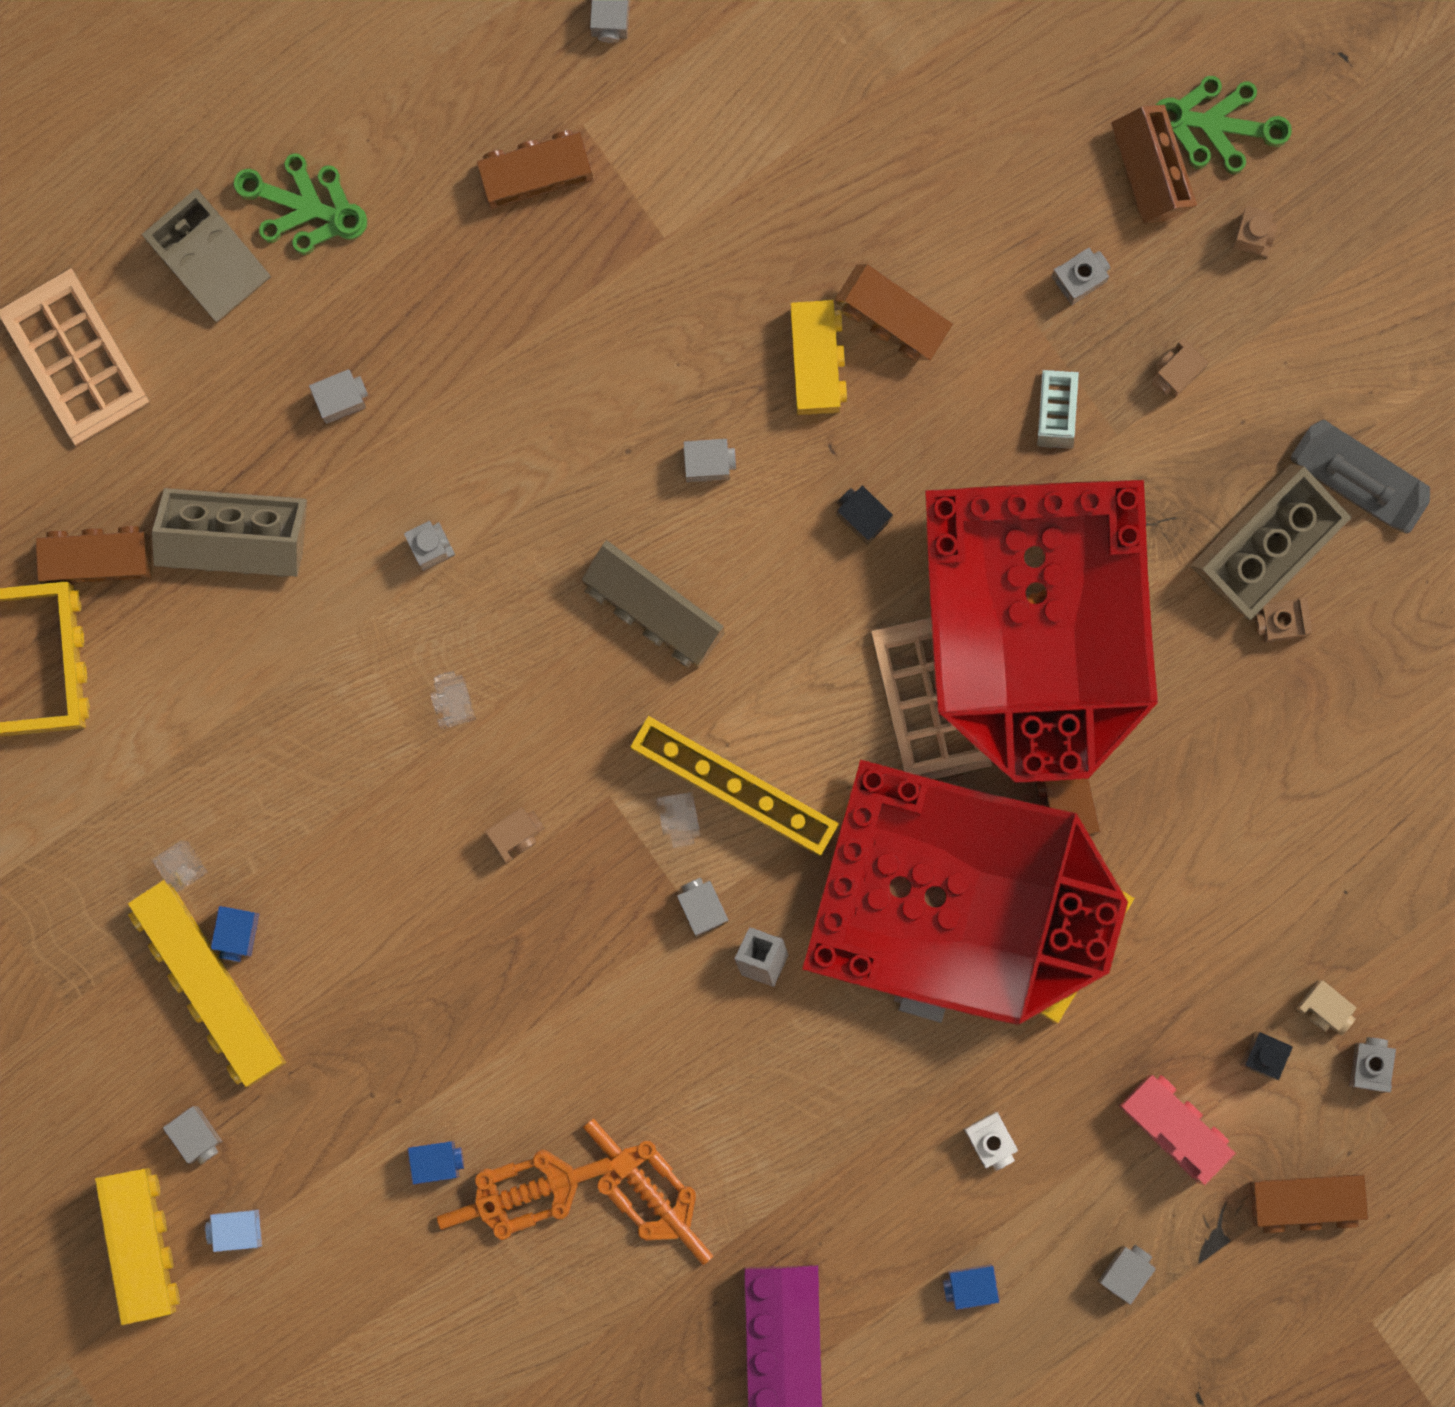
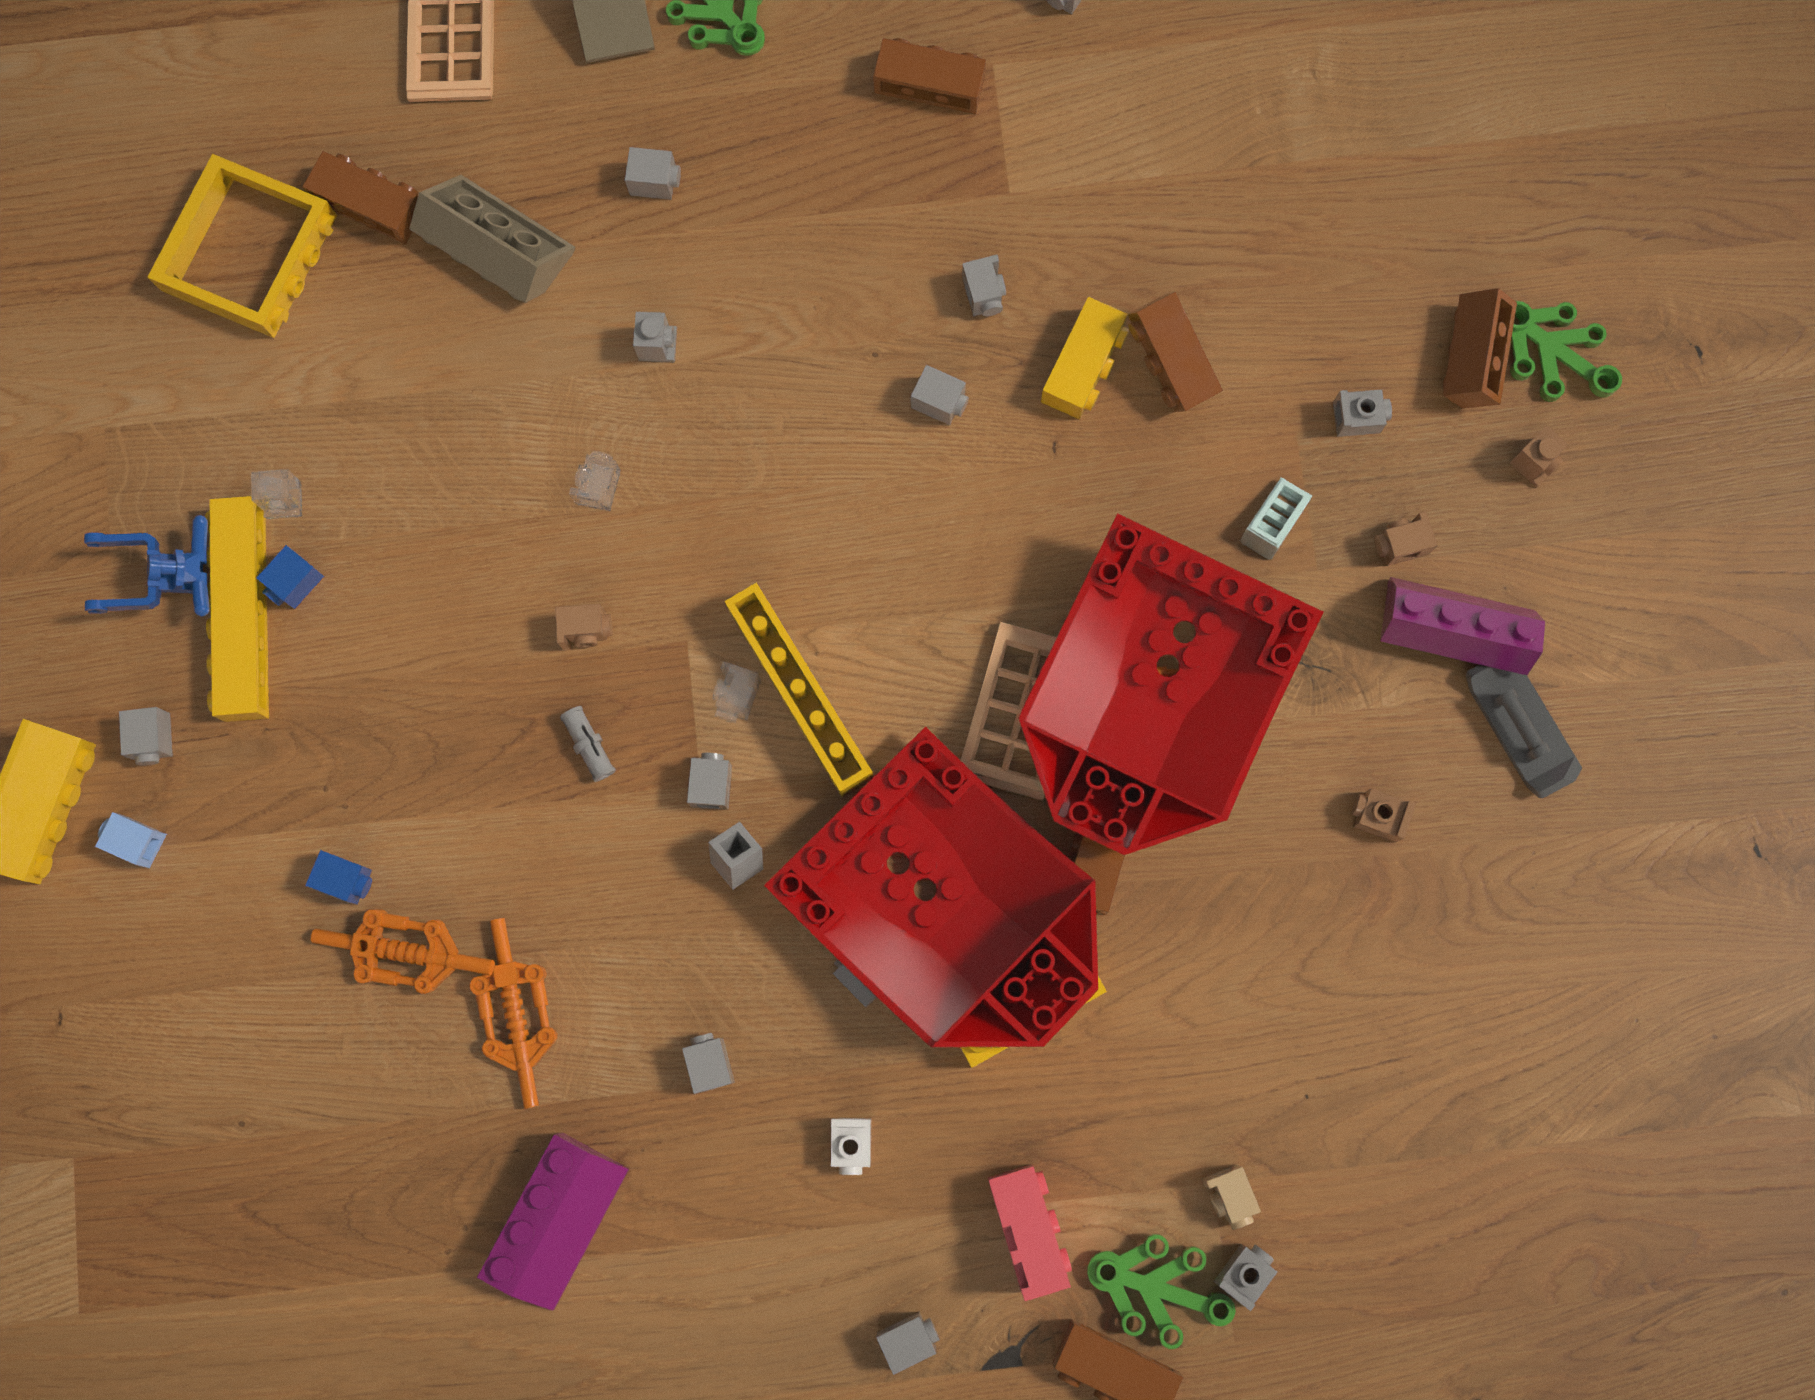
camera: 25 degrees right, 5 degrees down
(126, 987) = (165, 572): none -> blue piece
(577, 932) = (587, 743): none -> light grey pin
(653, 605) = (818, 491): dark tan slope -> none
(692, 340) = (984, 285): none -> light grey brick
(835, 1142) = (708, 1063): none -> light grey brick
(863, 513) = (1051, 515): black brick -> none
(971, 1287) = (755, 1271): blue brick -> none
(1265, 420) = (1462, 626): none -> magenta slope
(1266, 1056) = (1151, 1209): black brick -> none
(1271, 541) = (1410, 735): dark tan slope -> none
(1303, 1117) = (1154, 1286): none -> bright green plant

